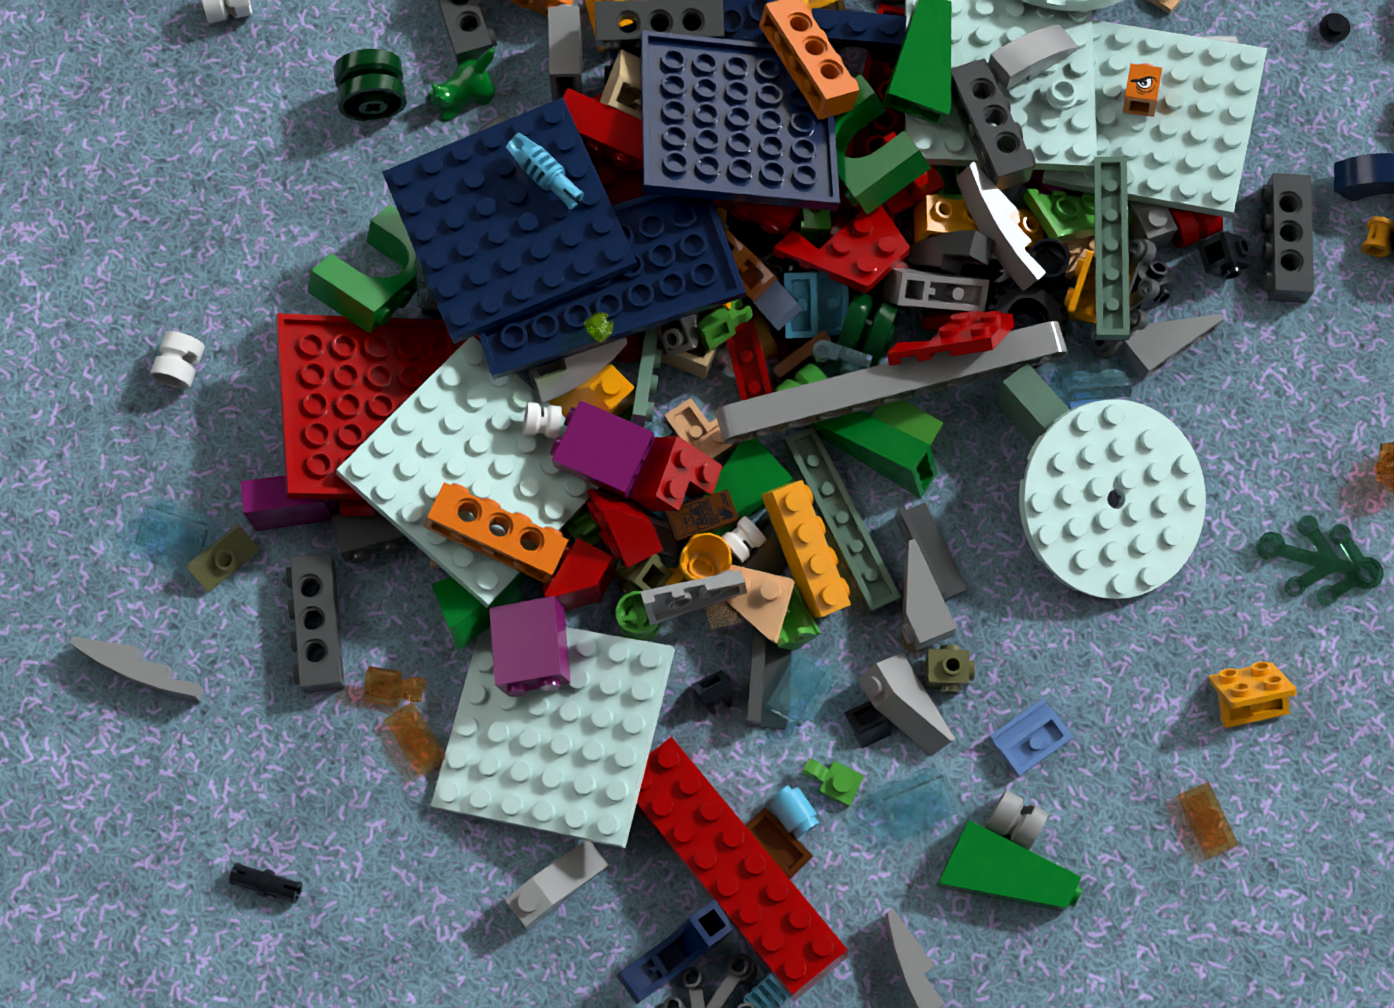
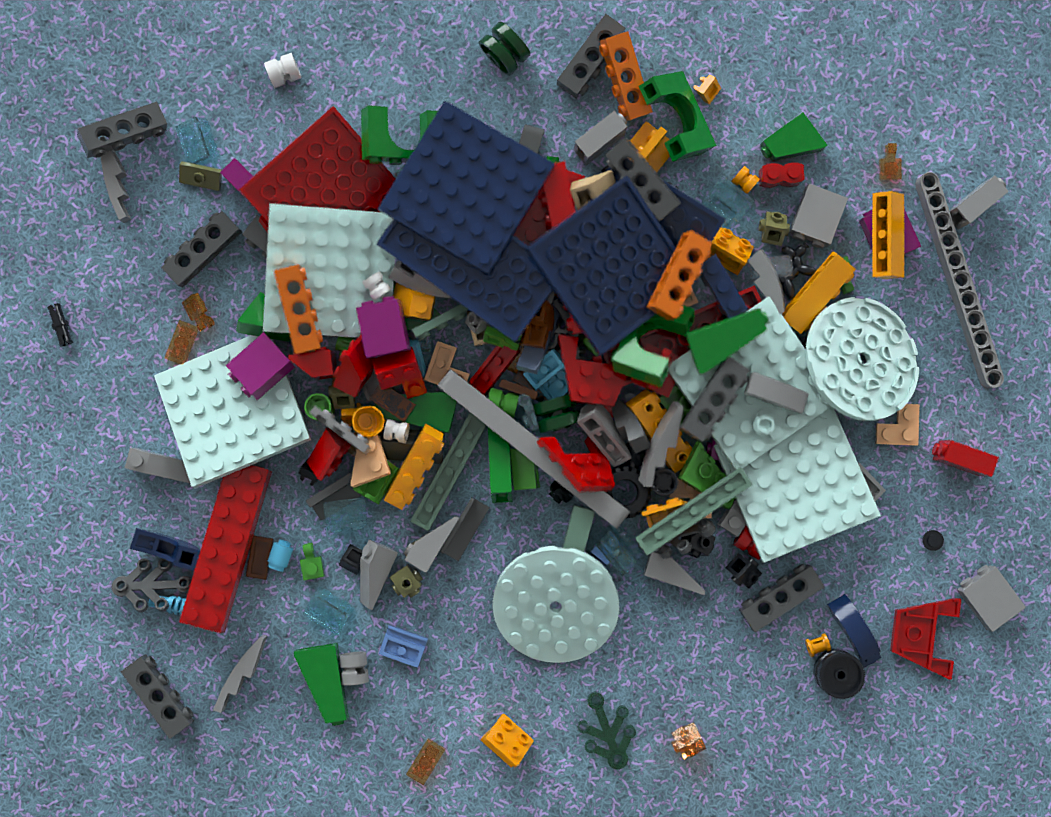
camera: 55 degrees right, 15 degrees up
(92, 582) = (149, 114): none -> dark grey brick
(466, 85) = (545, 97): green animal -> none
(543, 169) = (501, 186): medium azure hinge -> none
(598, 326) = (440, 280): clear neon green hinge -> none
(706, 643) = (327, 454): none -> red slope
(968, 399) = (560, 493): none -> black gear
(1142, 89) = (802, 465): orange brick -> none

